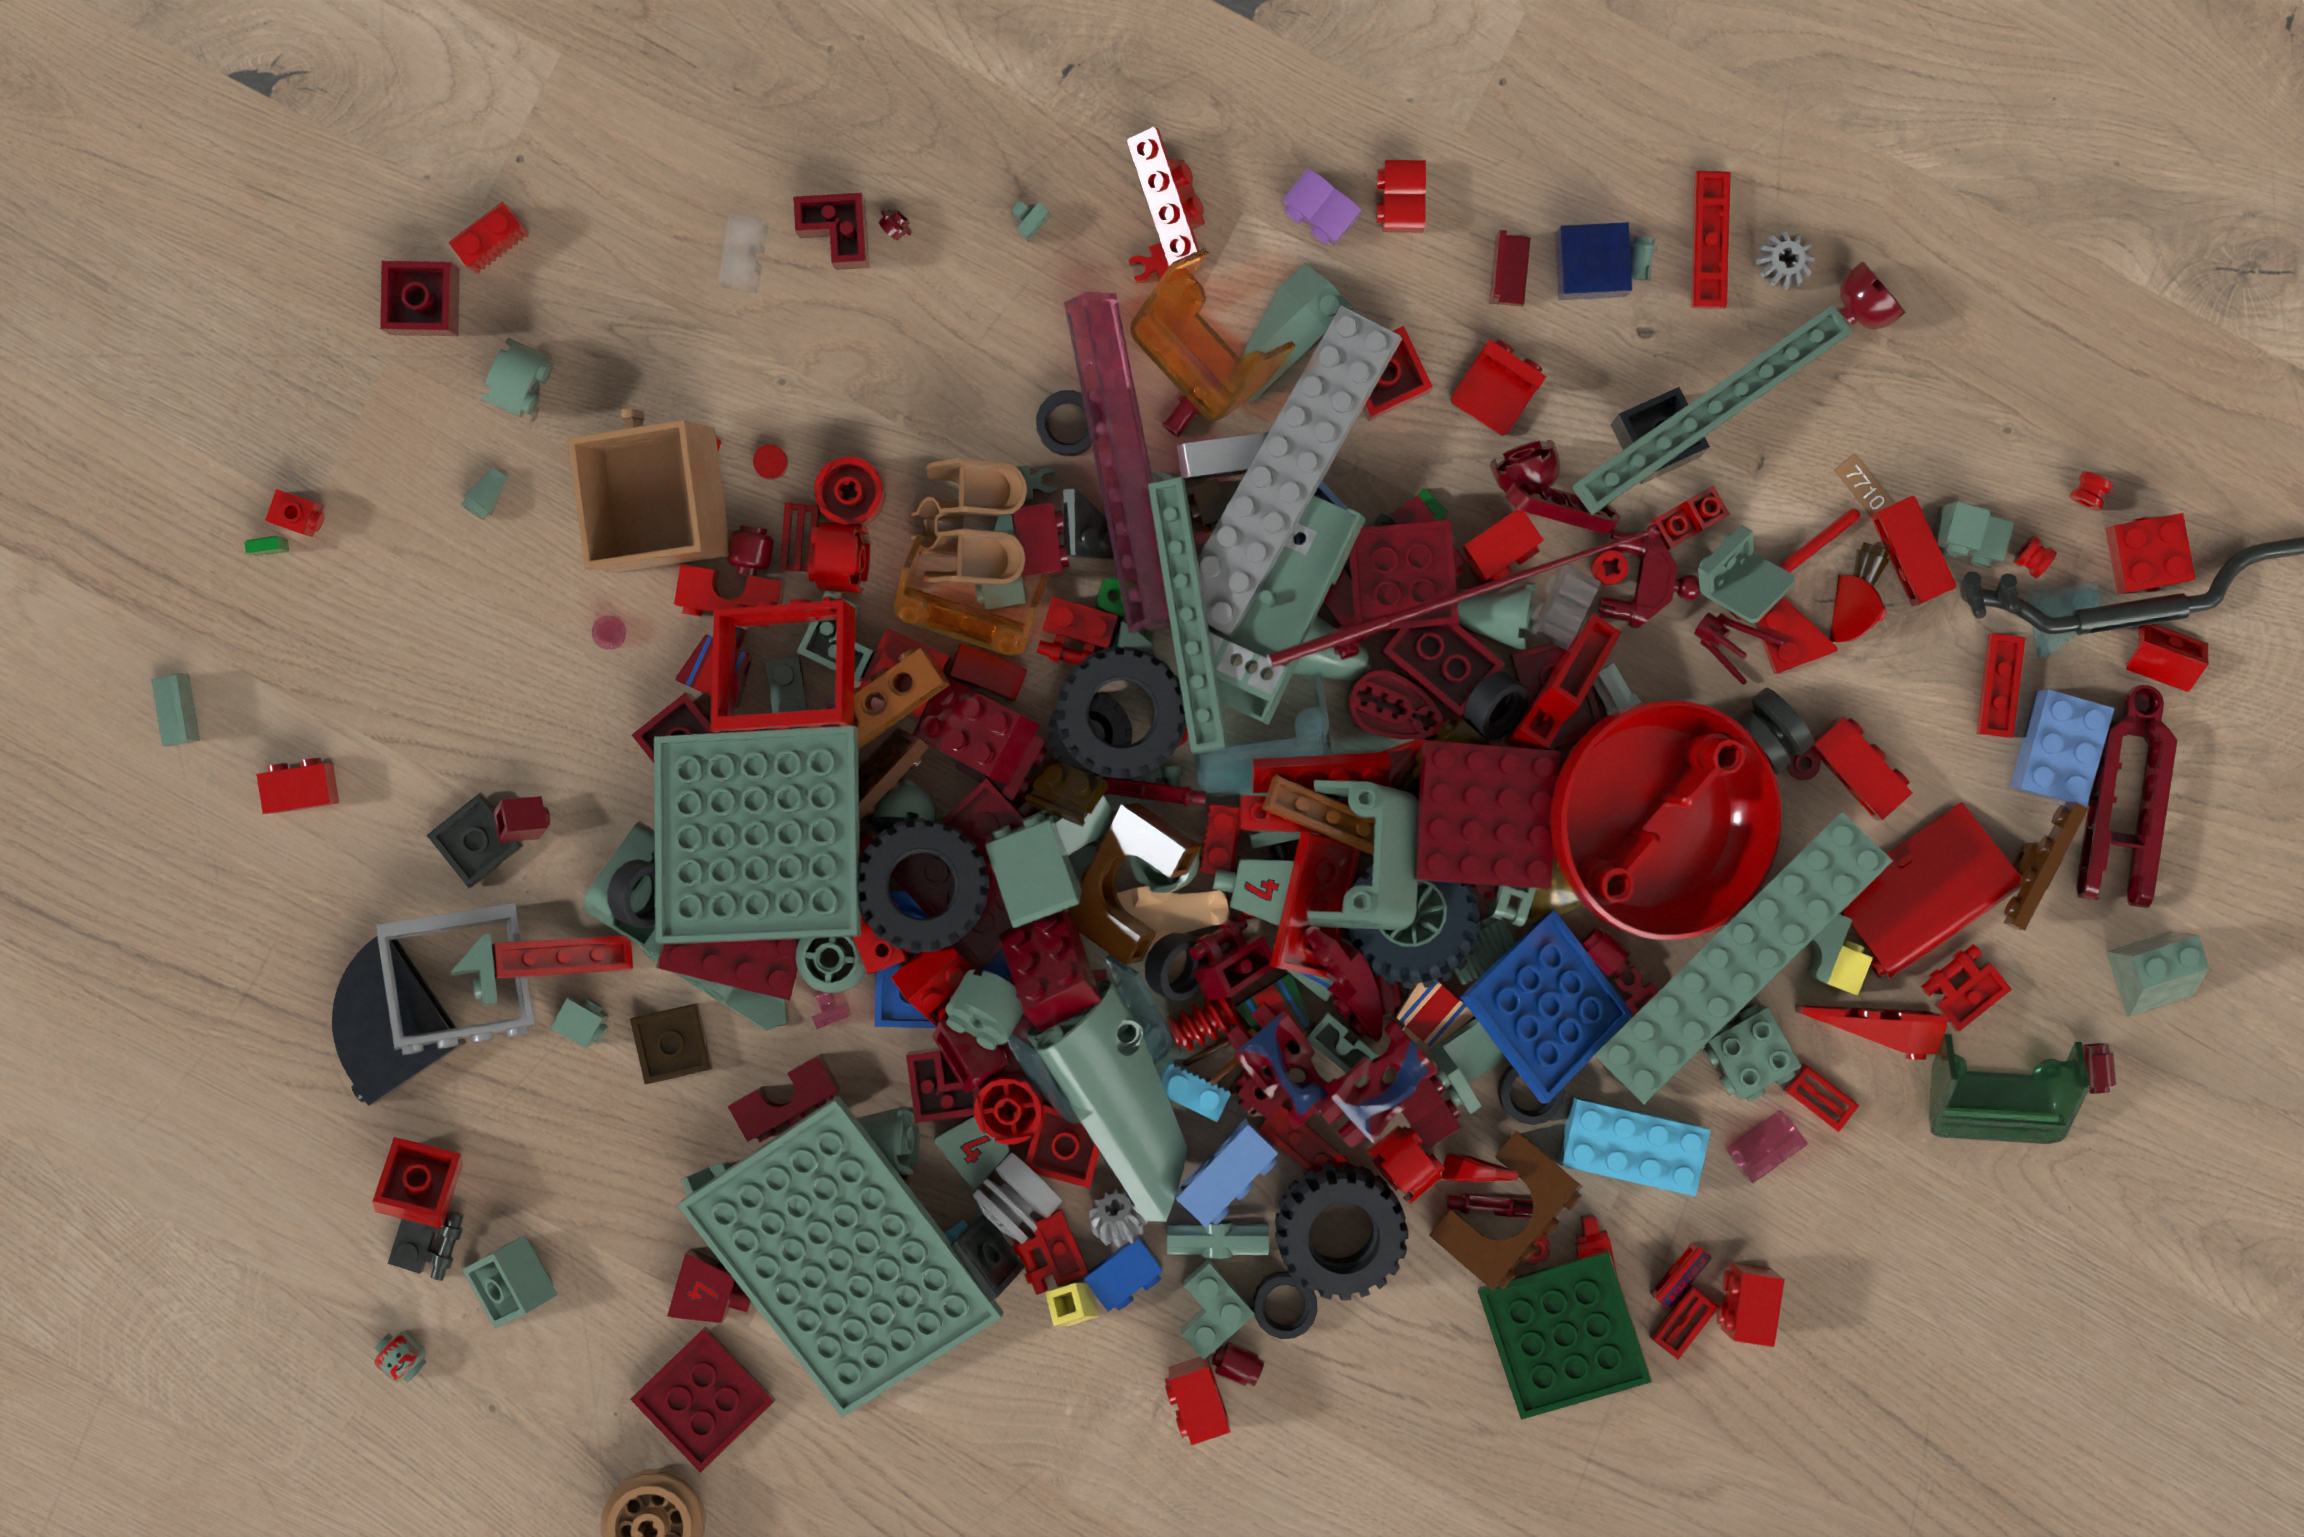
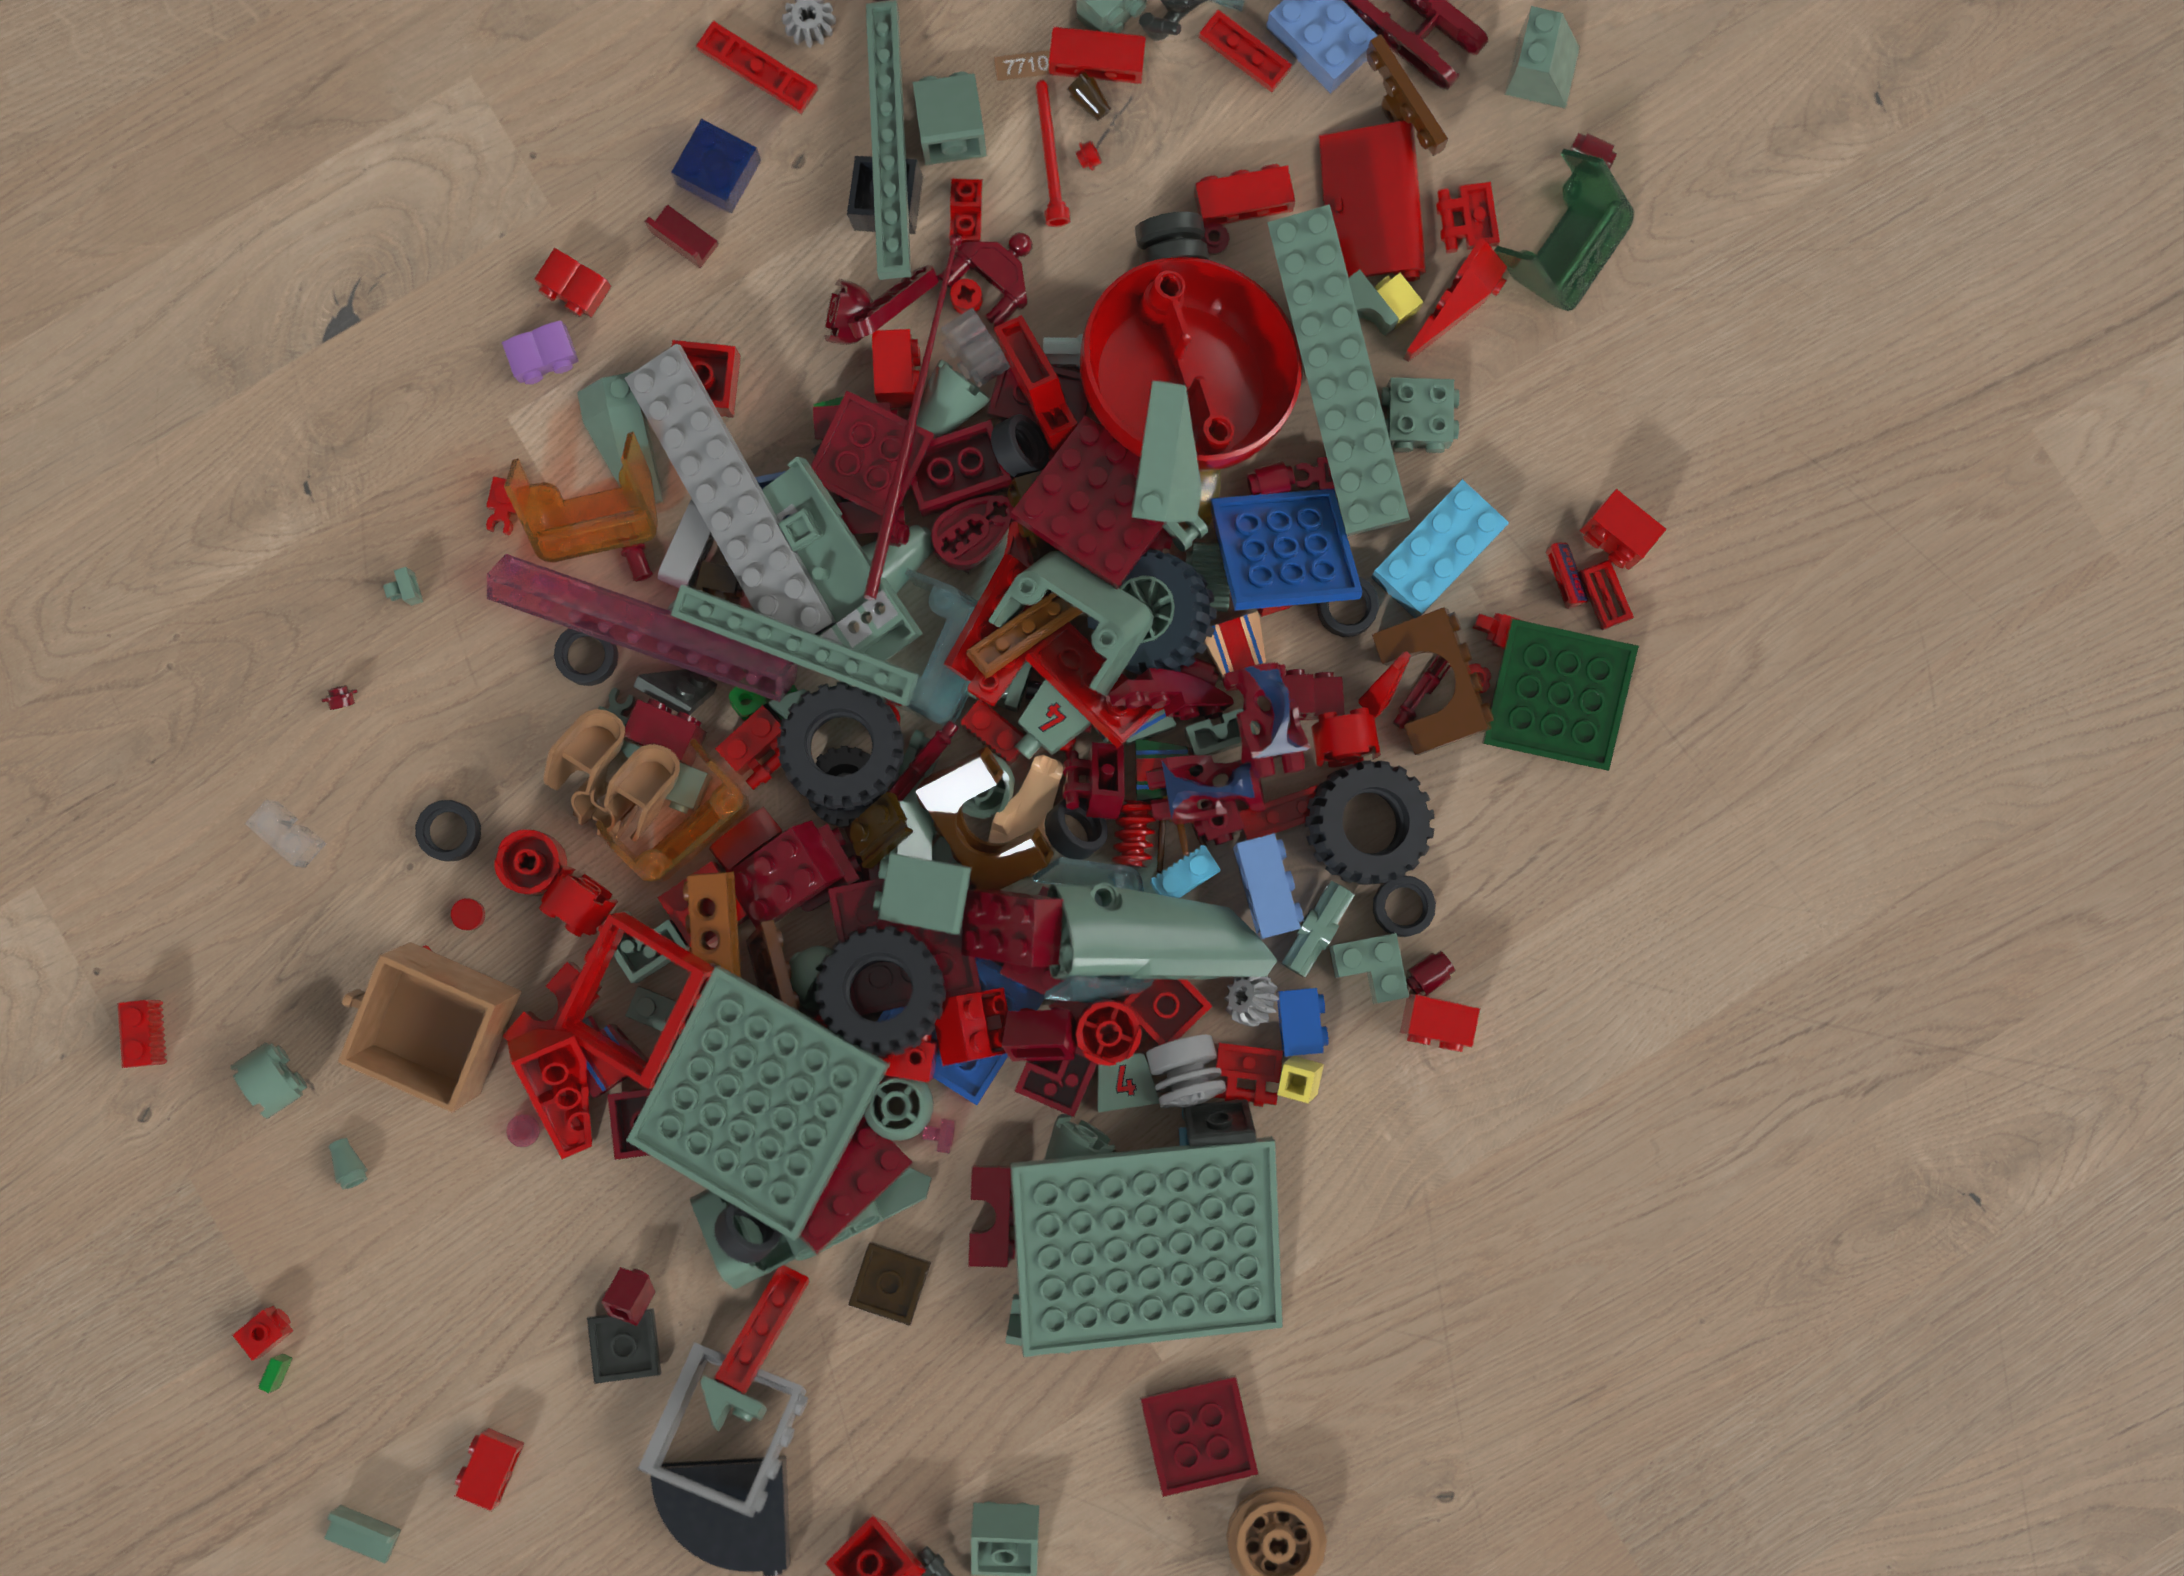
camera: 55 degrees left, 5 degrees down
(419, 298) = (153, 1120): dark red brick -> none
(581, 1021) = (826, 1347): sand green brick -> none
(669, 639) = (556, 1083): none -> red wedge
(705, 1290) = (1110, 1377): dark red torso -> none
(750, 549) = (526, 972): dark red head -> none
(786, 535) = (521, 912): red tile -> none
(818, 377) = (424, 822): none -> black tyre
(840, 218) = (304, 739): dark red brick -> none
(984, 1008) = (1012, 1000): sand green brick -> none
(1168, 194) = (451, 464): bracket -> none
(1297, 555) = (800, 529): none -> sand green tile
(1463, 1059) = (1288, 639): sand green bracket -> none
(1498, 387) = (768, 298): red bracket -> none
(1554, 861) = (1168, 468): none -> sand green wedge
(1642, 257) = (736, 126): sand green pin -> none
(1713, 632) = (1066, 245): dark red plant -> none
(1742, 578) = (1038, 198): sand green bracket -> none
(1766, 1146) = (1502, 446): clear pink hinge -> none
(1770, 450) = (949, 118): none -> sand green slope
(1798, 1080) = (1465, 391): red tile -> none
(1801, 638) = (1107, 190): red wing -> none
(1812, 599) = (1088, 155): none -> red plate
(1855, 609) = (1115, 124): red shield -> none

